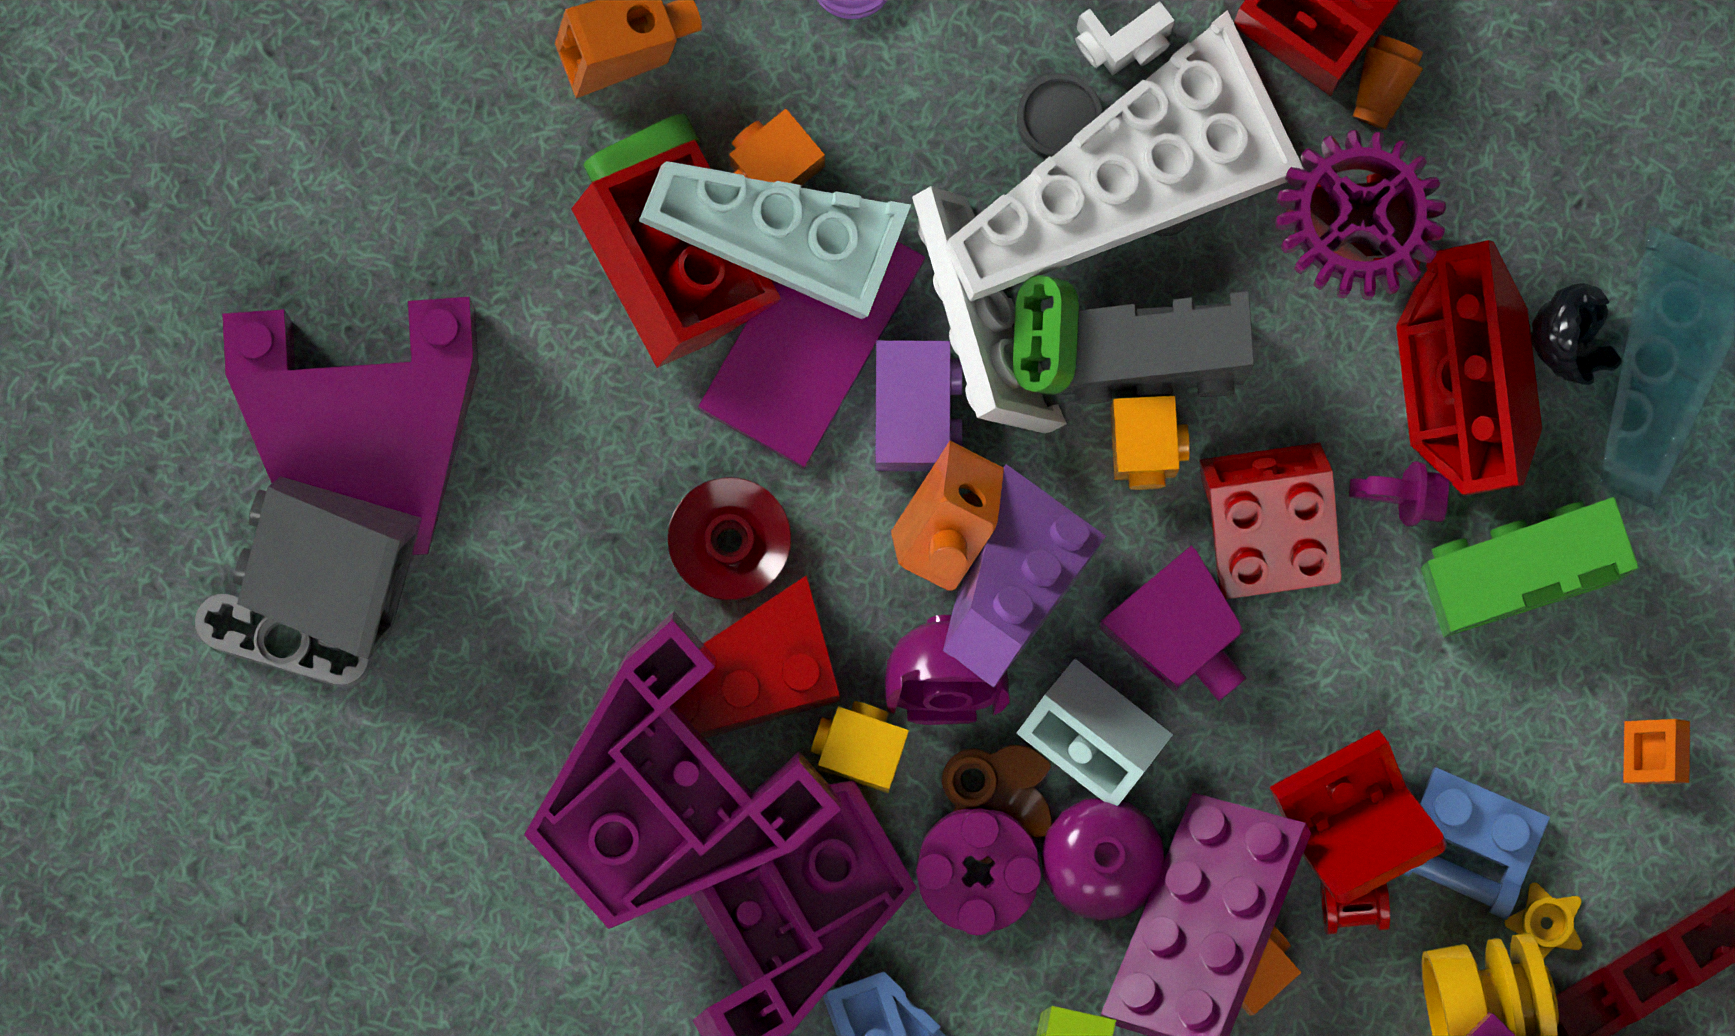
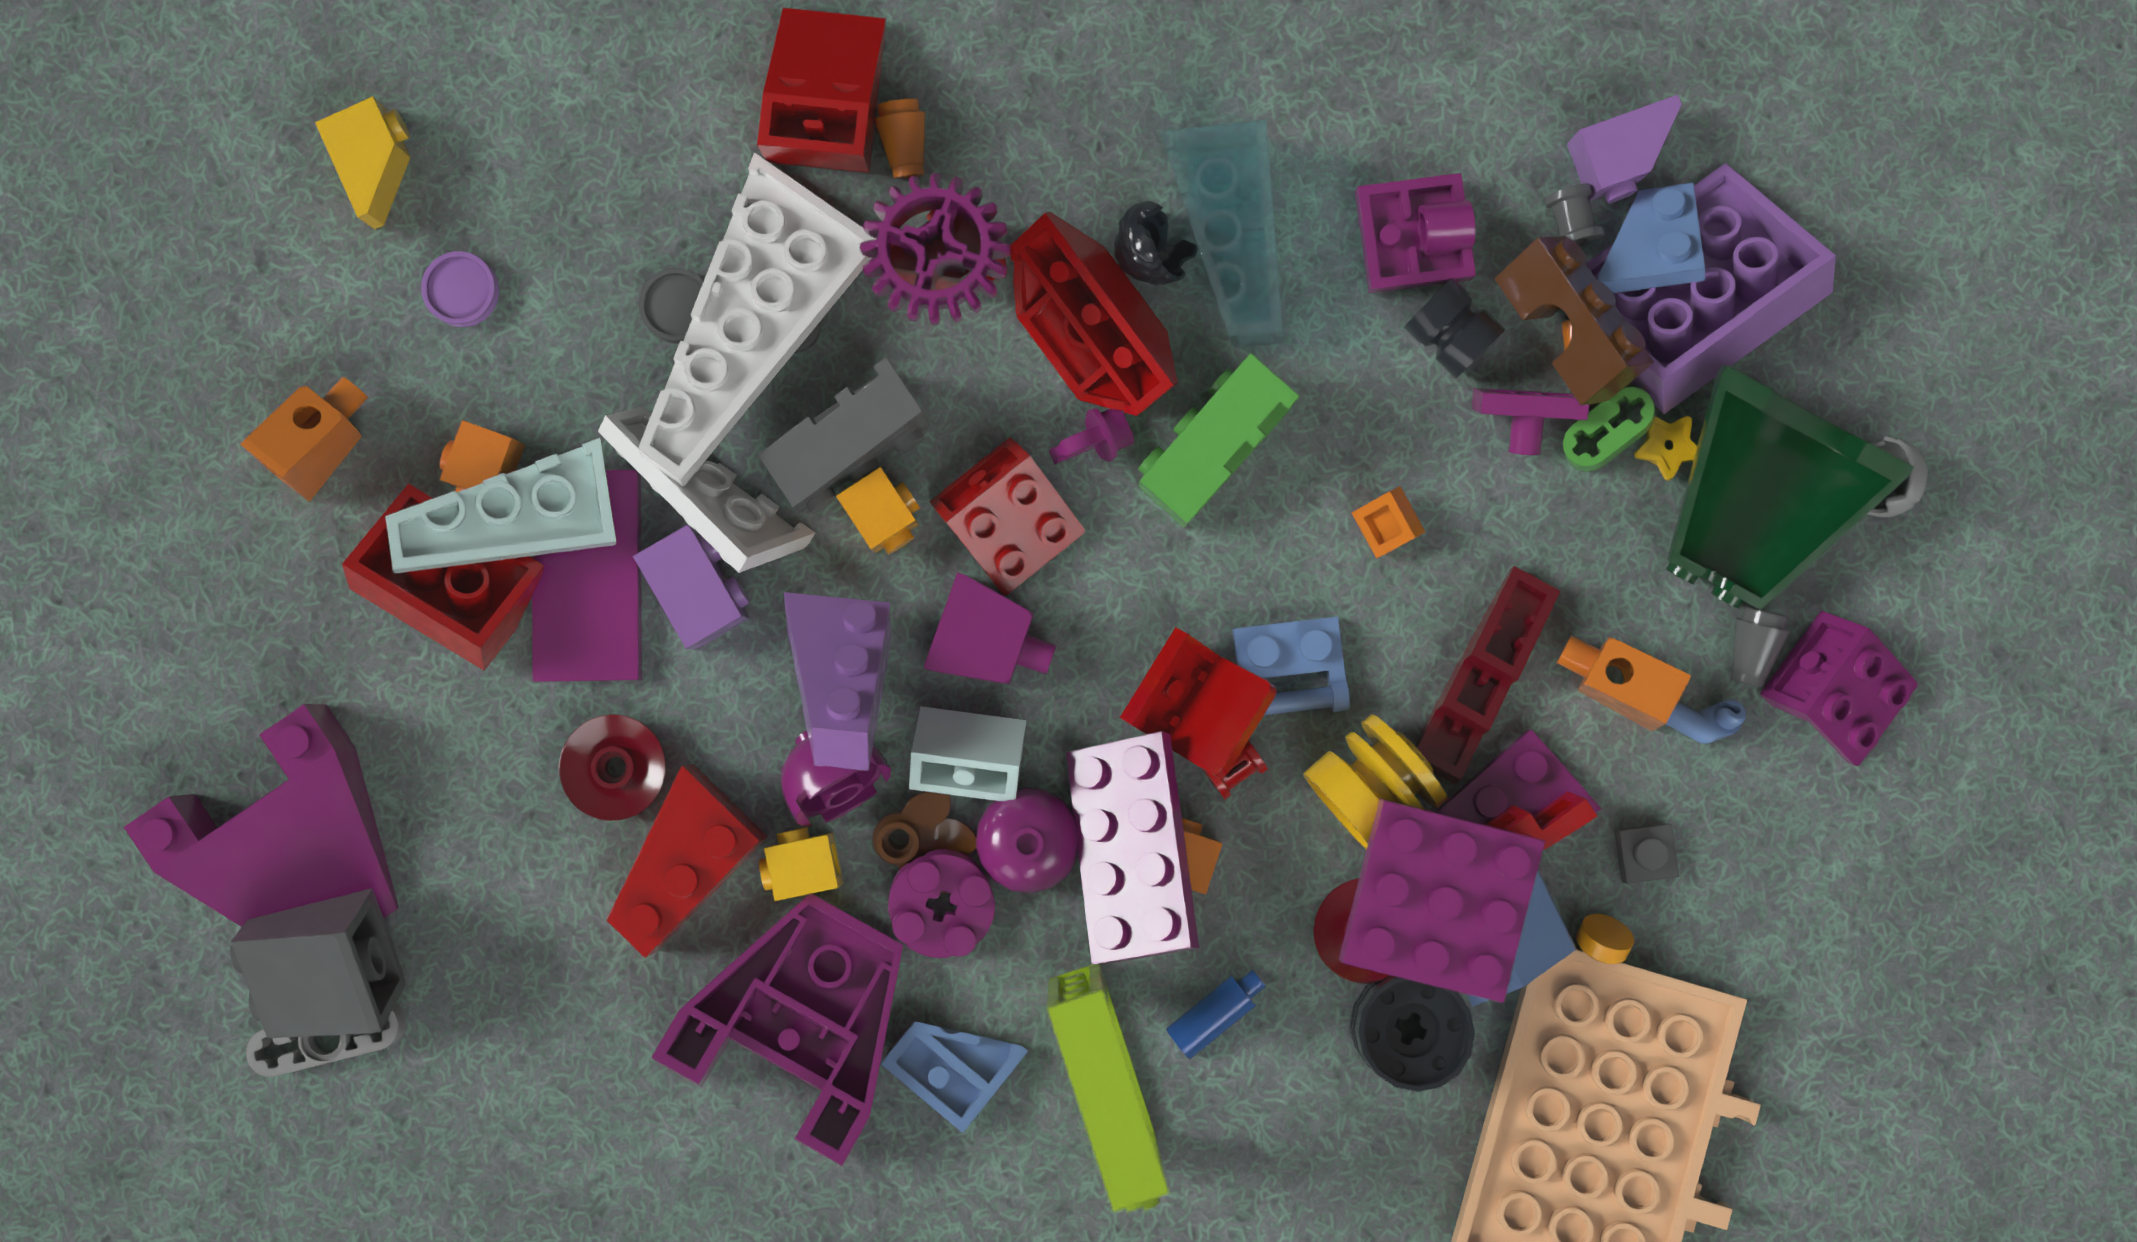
camera: 30 degrees left, 5 degrees up
(641, 146) = (373, 506): bright green beam -> none
(652, 806) = (663, 1010): magenta wedge -> none
(940, 529) = (764, 674): orange torso -> none
(1045, 334) = (756, 477): bright green beam -> none
(1138, 40) = (699, 214): white bracket -> none
(1560, 911) = (1385, 680): yellow plate -> none

